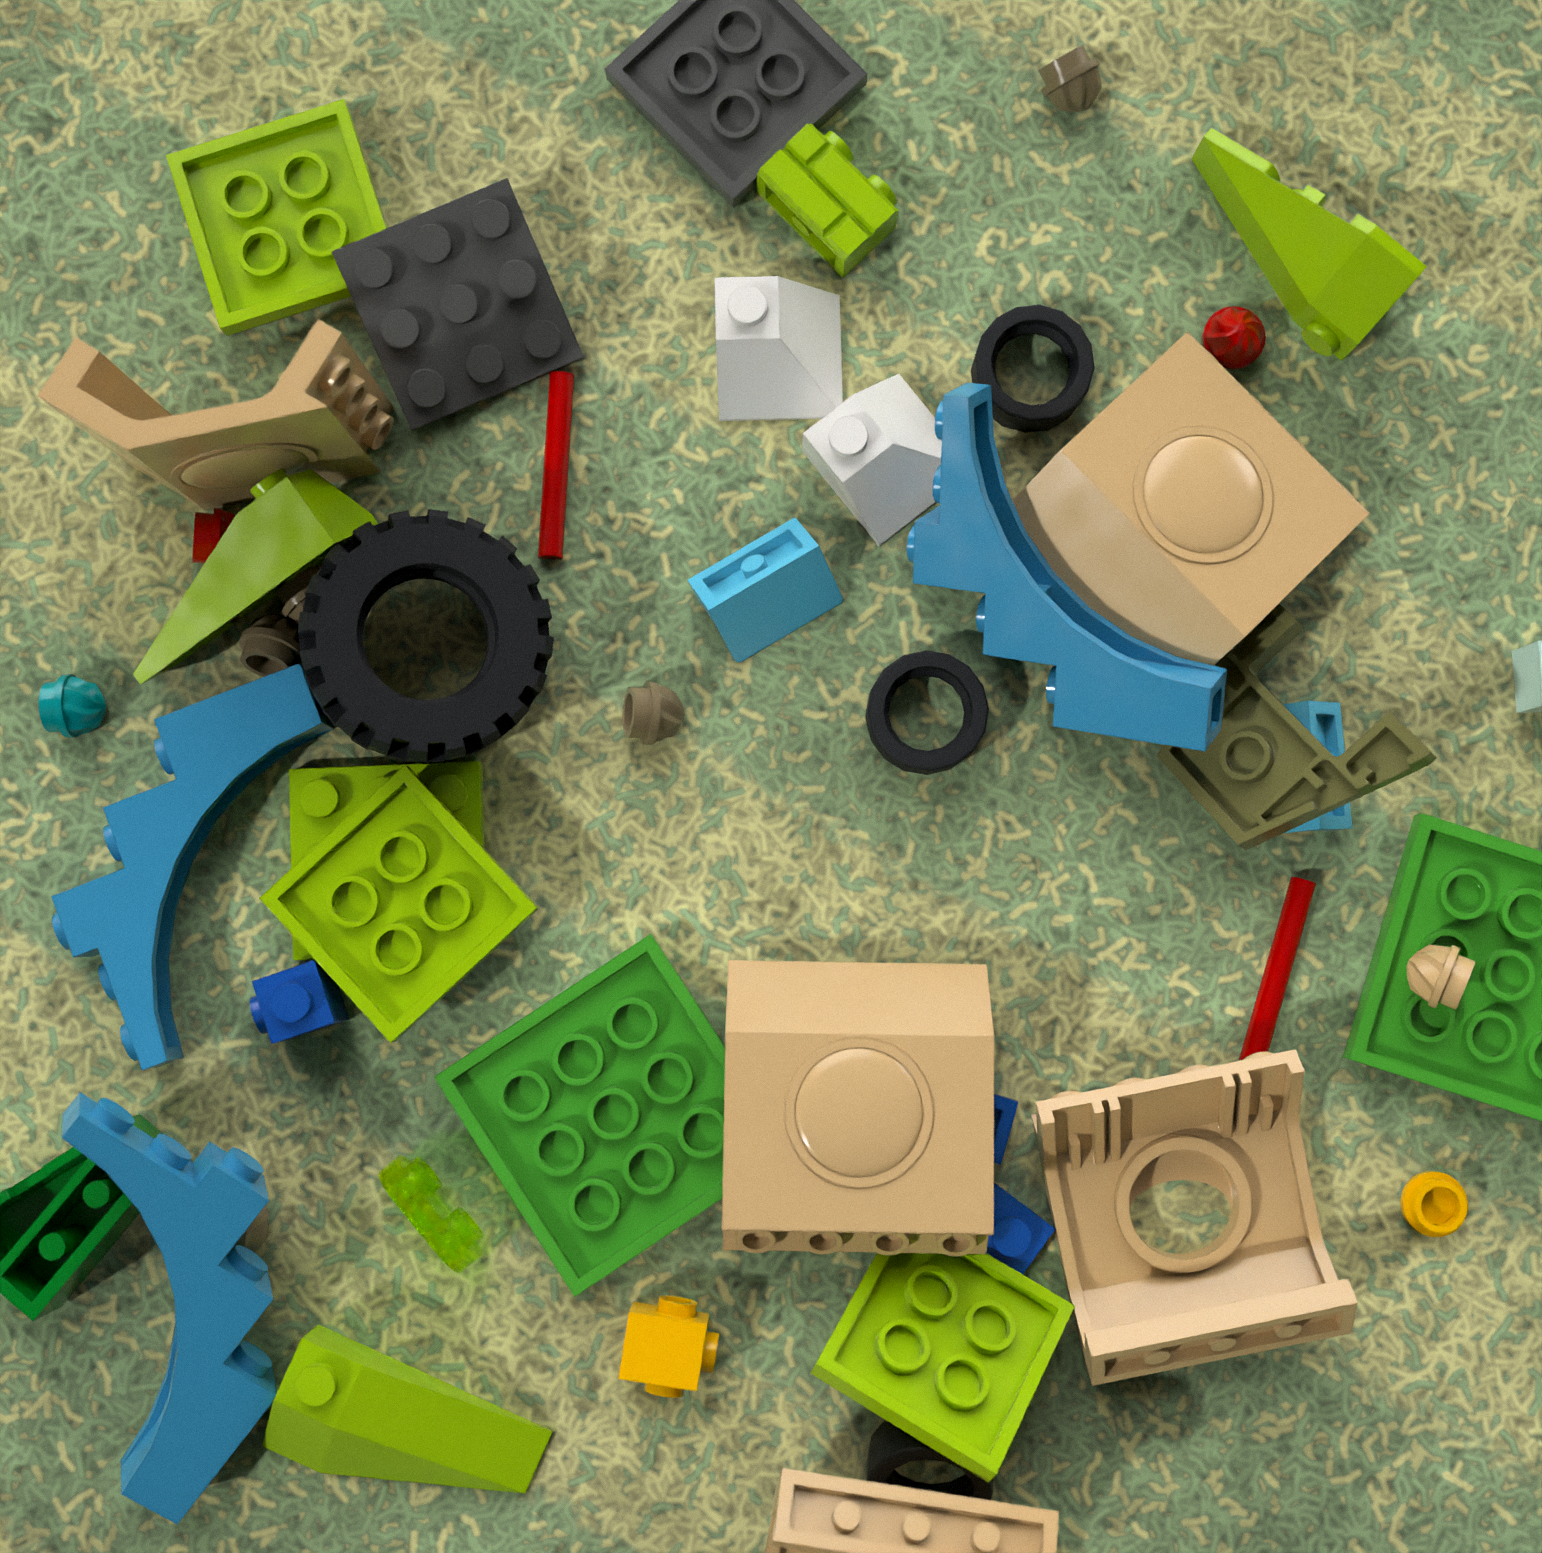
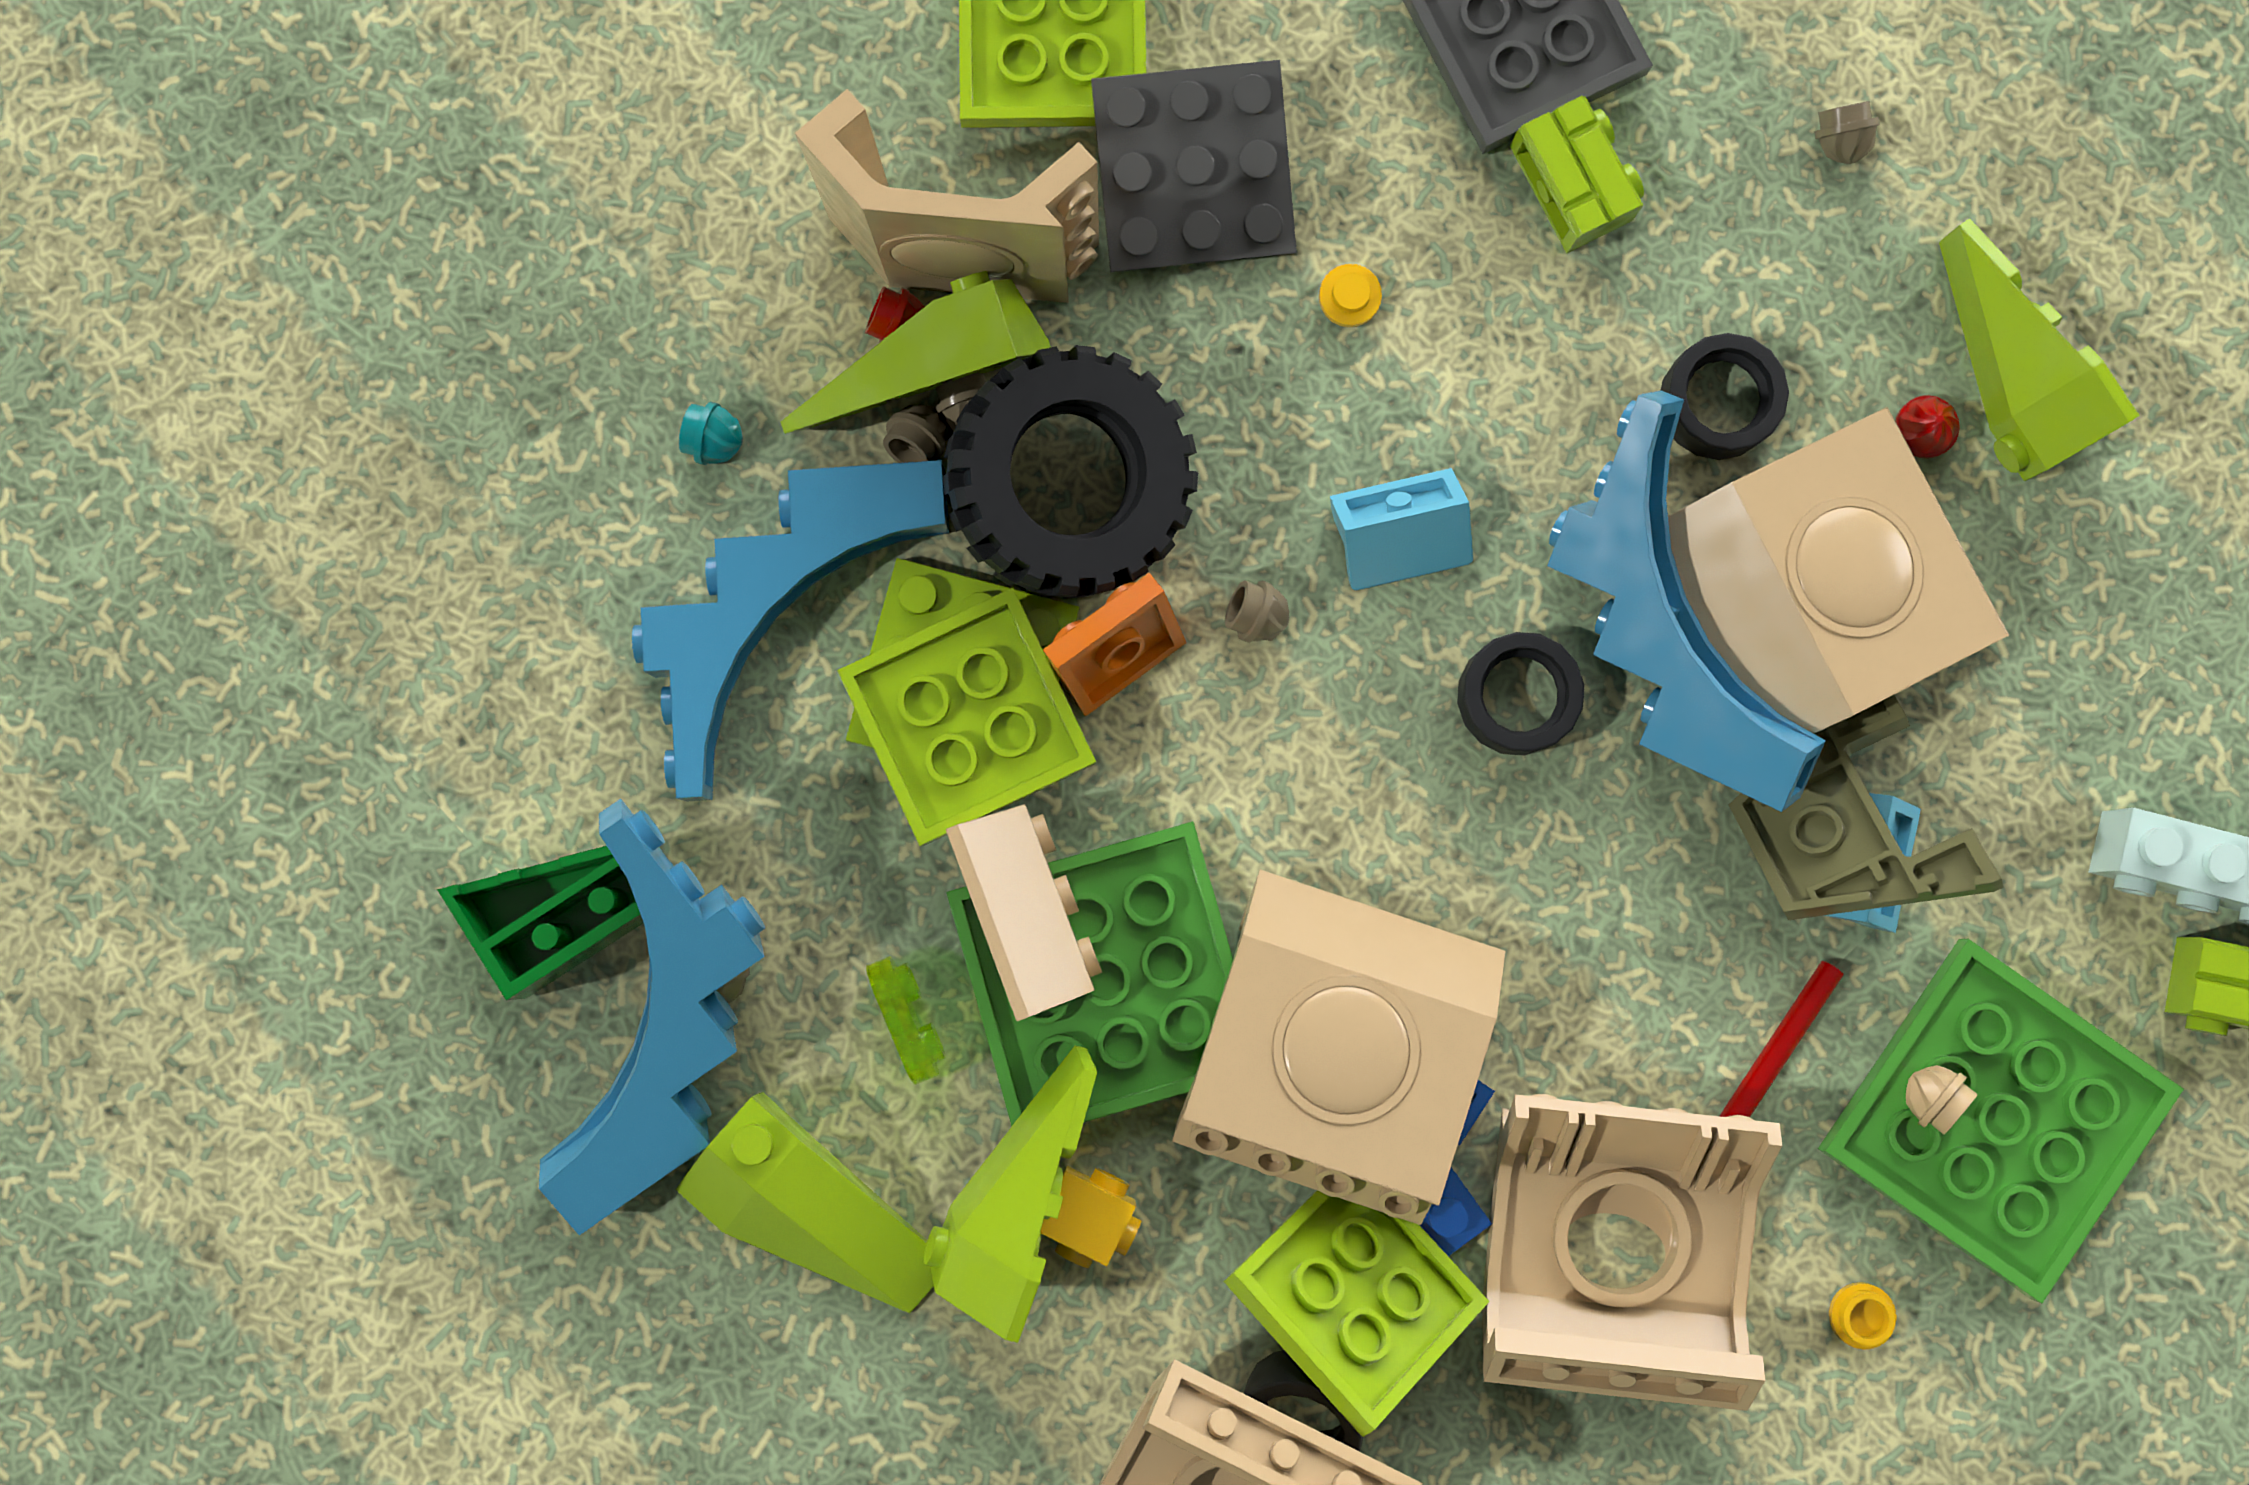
camera: 15 degrees right, 0 degrees up
(296, 1002) = (839, 780): blue brick -> none
(507, 1075) = (1024, 910): none -> tan slope
(520, 788) = (1115, 643): none -> orange plate
(556, 465) = (1237, 348): red bar -> none
(575, 1395) = (992, 1232): none -> lime wedge
(648, 382) = (1350, 295): none -> yellow plate
(776, 349) = (1483, 303): white slope -> none
(878, 455) = (1551, 435): white slope -> none

